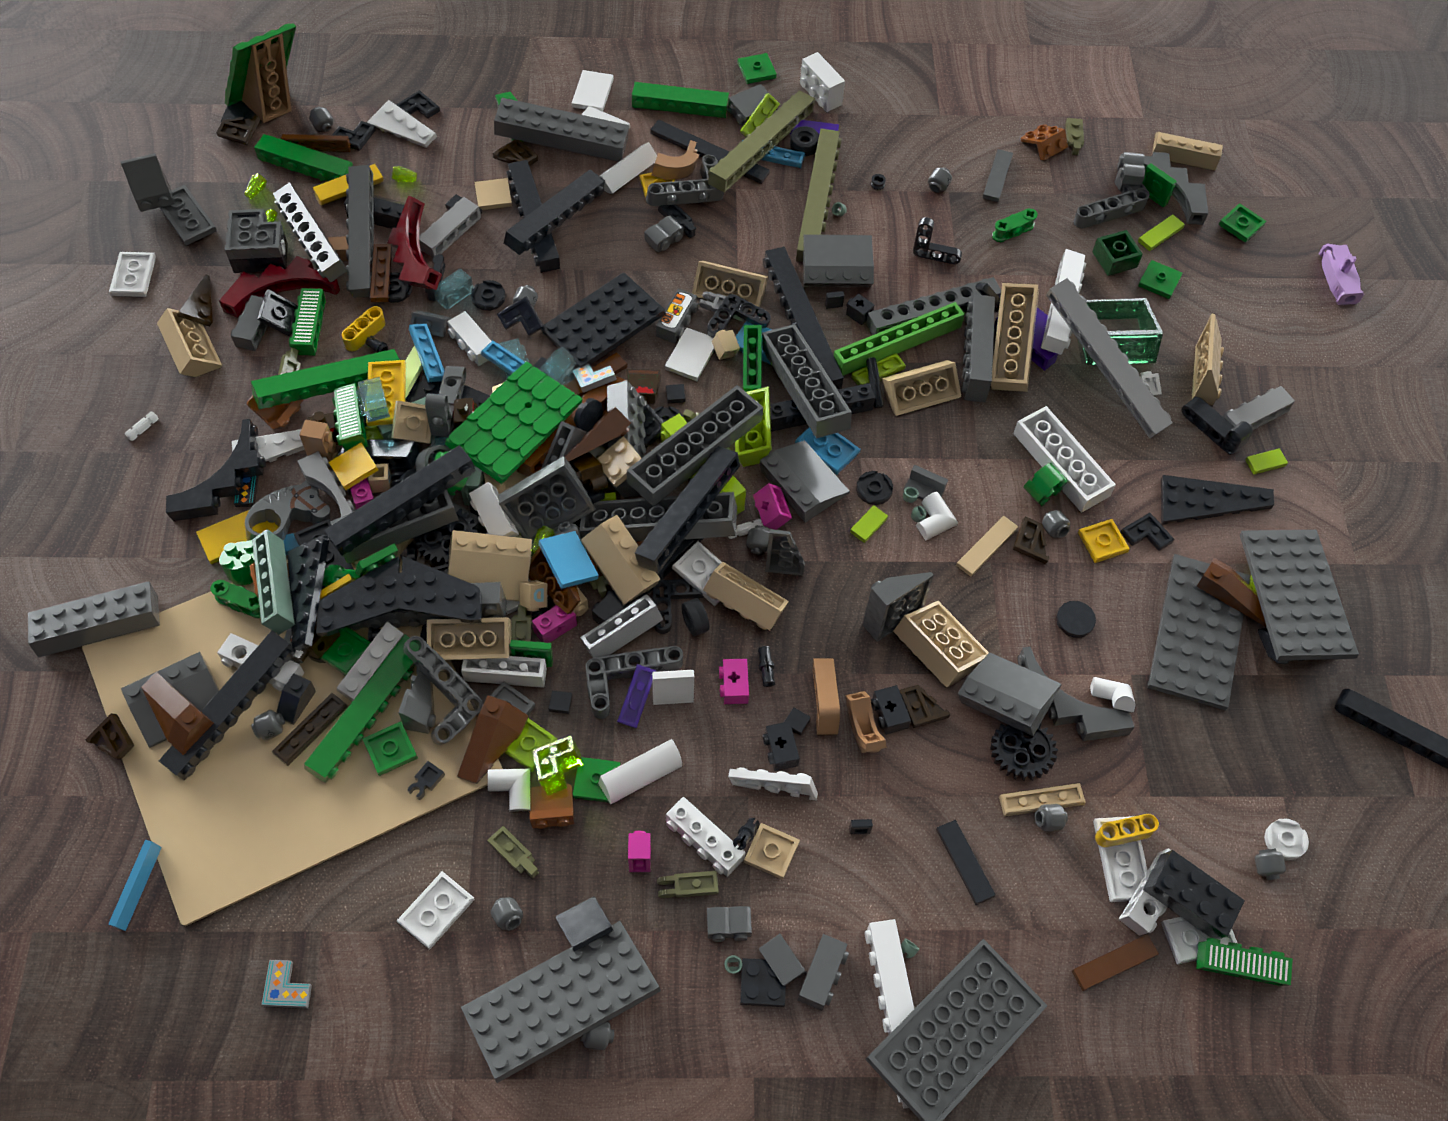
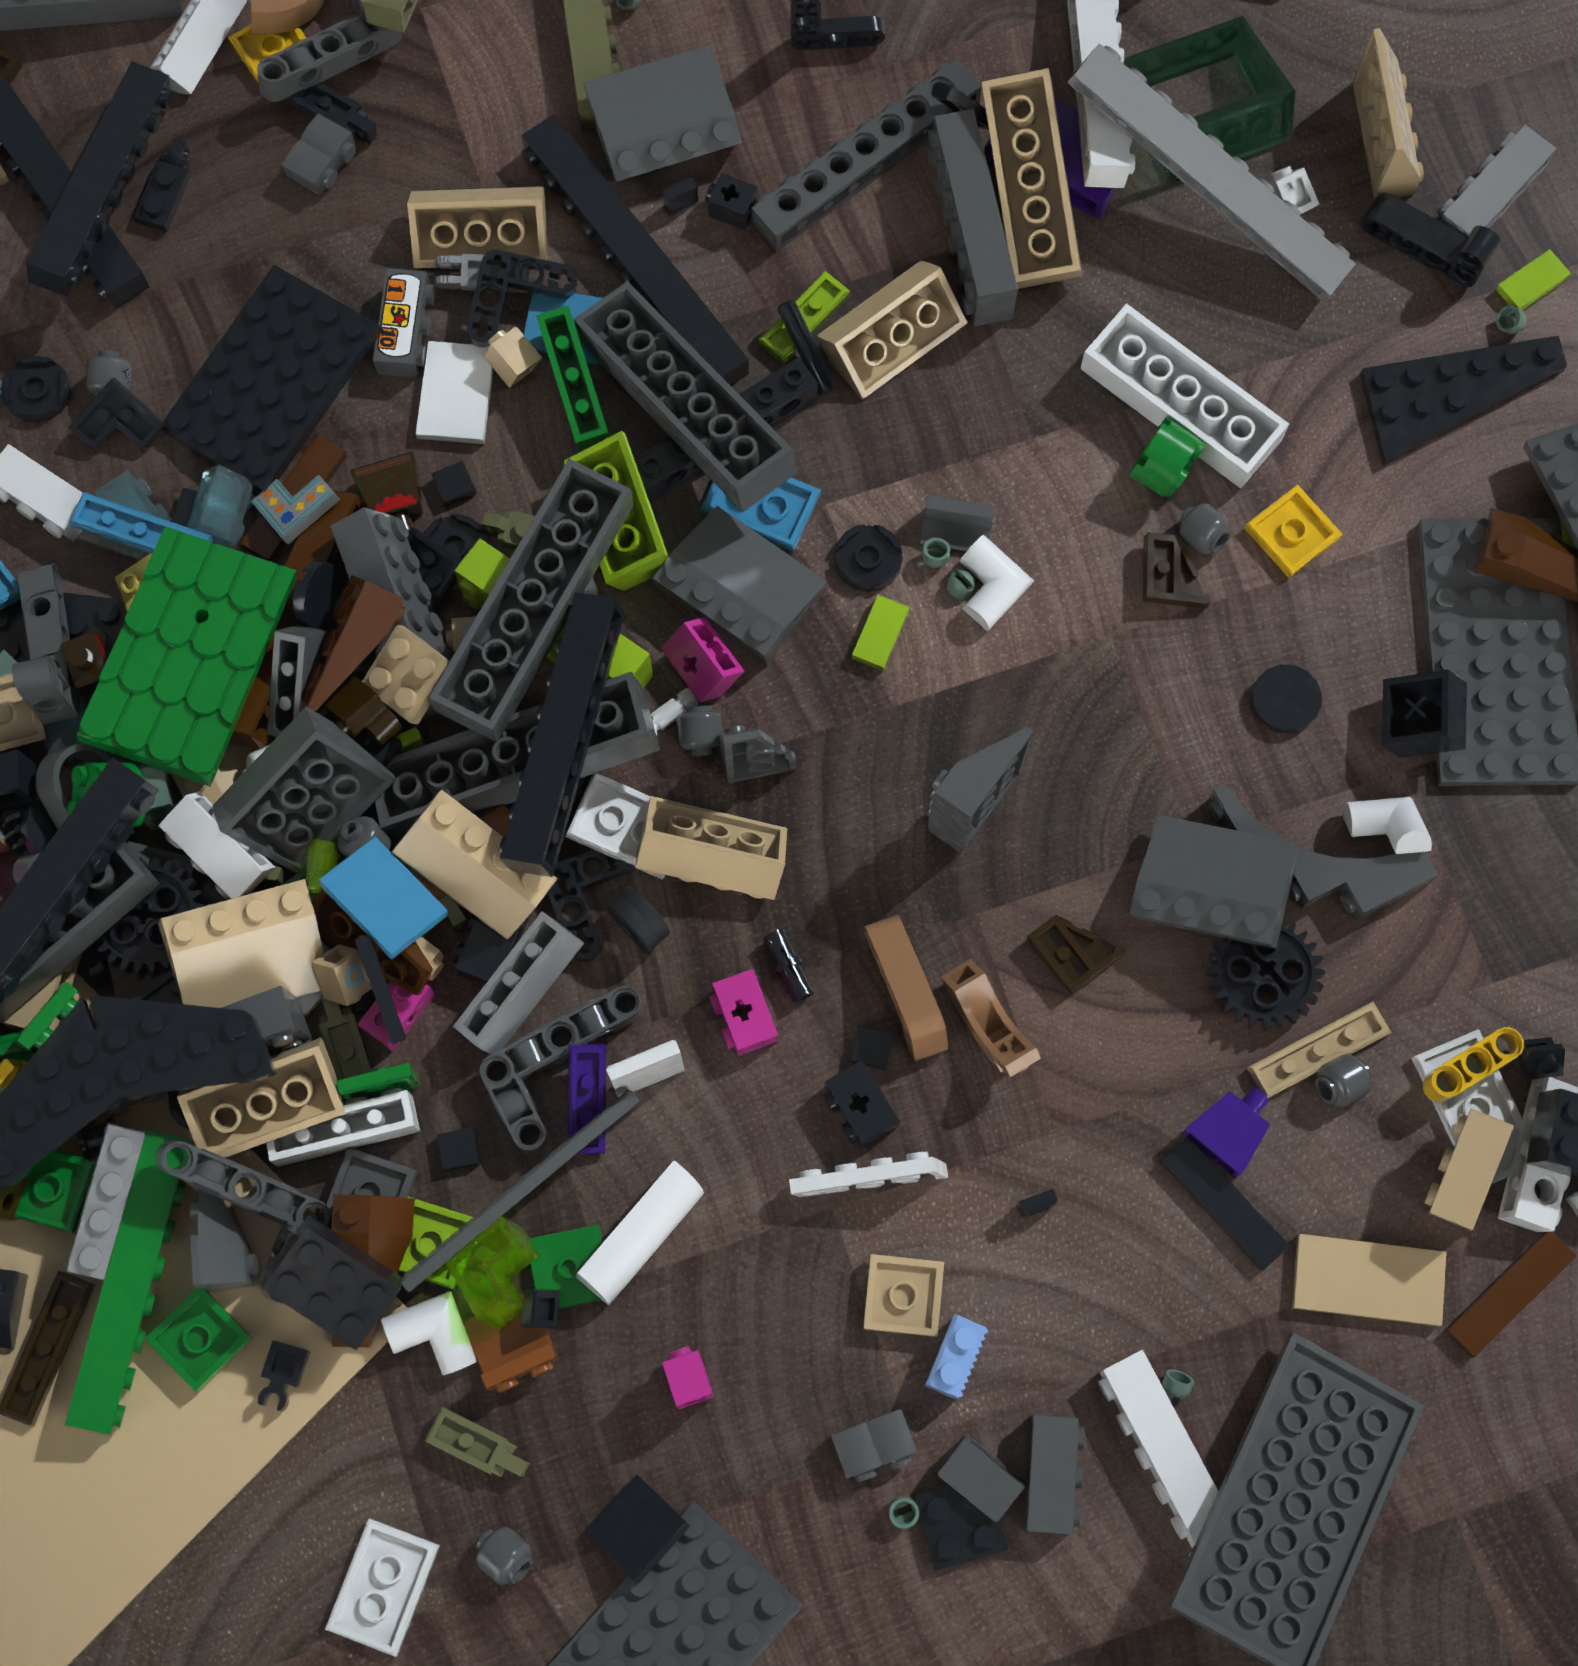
camera: 15 degrees left, 15 degrees up
(469, 736) = (332, 1282): none -> black brick
(549, 604) = (380, 990): none -> black tile
(573, 791) = (540, 1308): none -> black tile
(584, 228) = (165, 188): none -> black hinge
(587, 726) = (519, 1190): none -> dark grey tile
(689, 884) = (789, 1399): olive hinge -> none
(704, 836) = (785, 1309): white brick -> none
(746, 833) = (853, 1284): black pin -> none
(790, 891) = (956, 1357): none -> light blue brick
(886, 701) = (1021, 956): black brick -> none
(899, 338) = (823, 242): bright green brick -> none
(941, 643) = (1073, 822): tan slope -> none
(980, 823) = (1231, 1130): none -> dark purple torso
(987, 546) = (1097, 608): tan tile -> none
(1035, 929) = (1369, 1280): none -> tan tile
(1109, 881) = (1469, 1168): none -> tan brick
(1148, 528) = (1362, 481): black tile -> none
(1149, 644) = (1424, 713): none -> black brick
(1166, 839) = (1542, 1058): none -> black bracket
(1246, 474) = (1506, 322): none -> sand green hinge

